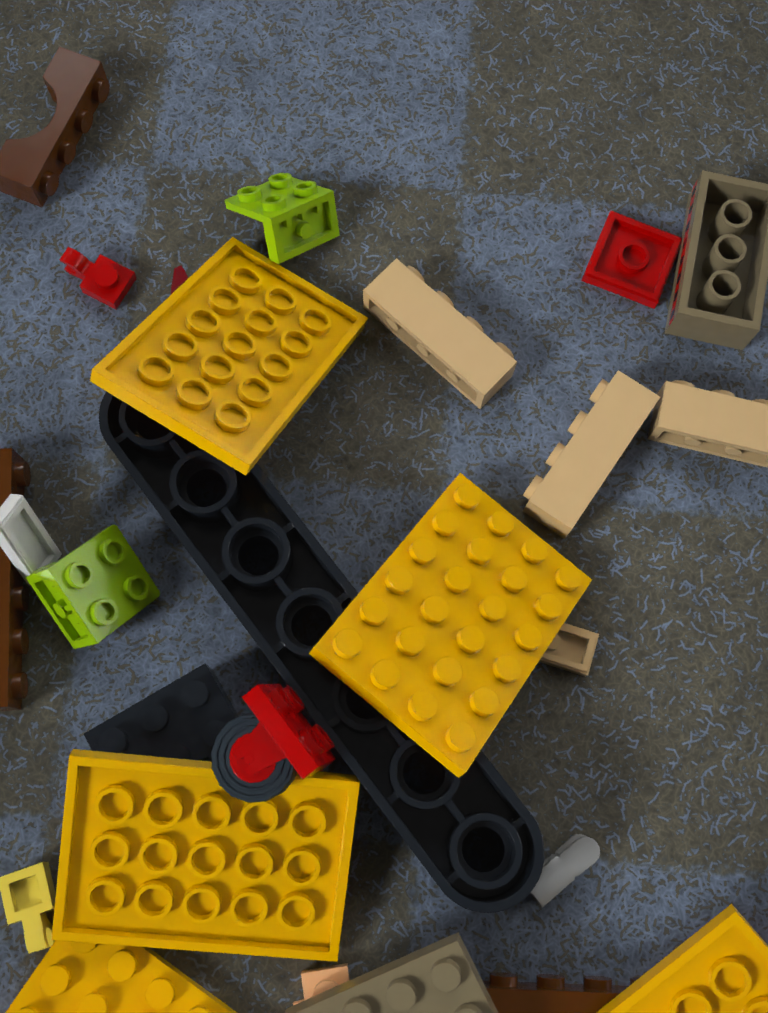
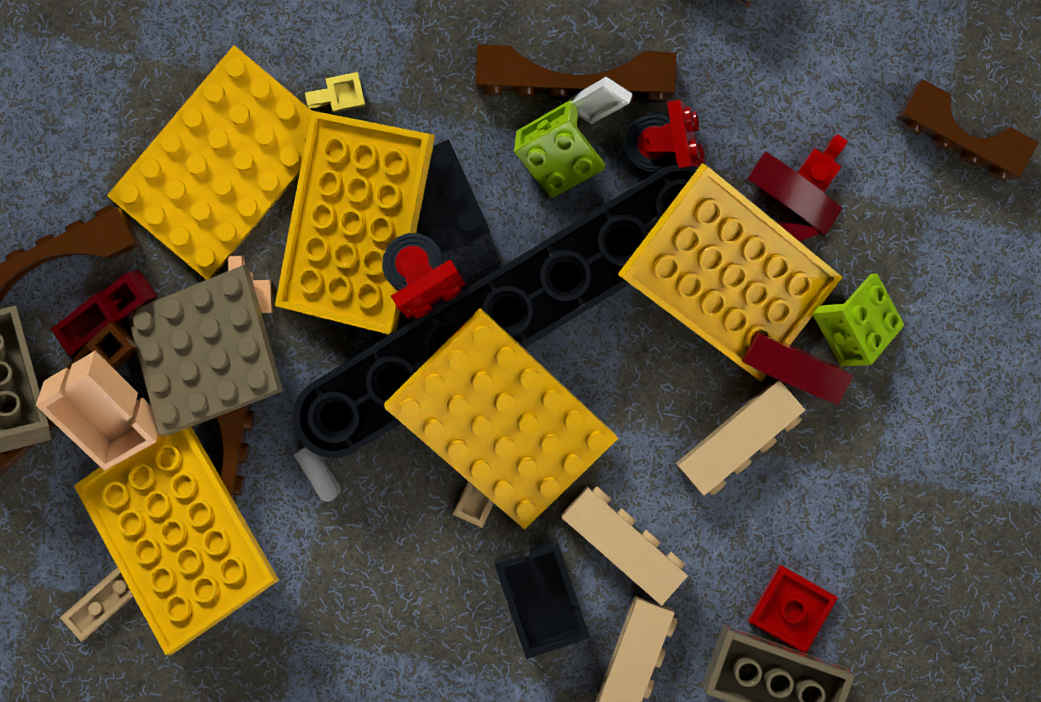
camera: 100 degrees right, 15 degrees up
(75, 456) = (664, 140): none -> plate
(130, 301) = (793, 193): none -> dark red slope
(346, 274) = (797, 368): none -> dark red slope
(680, 548) = (541, 599): none -> black piece

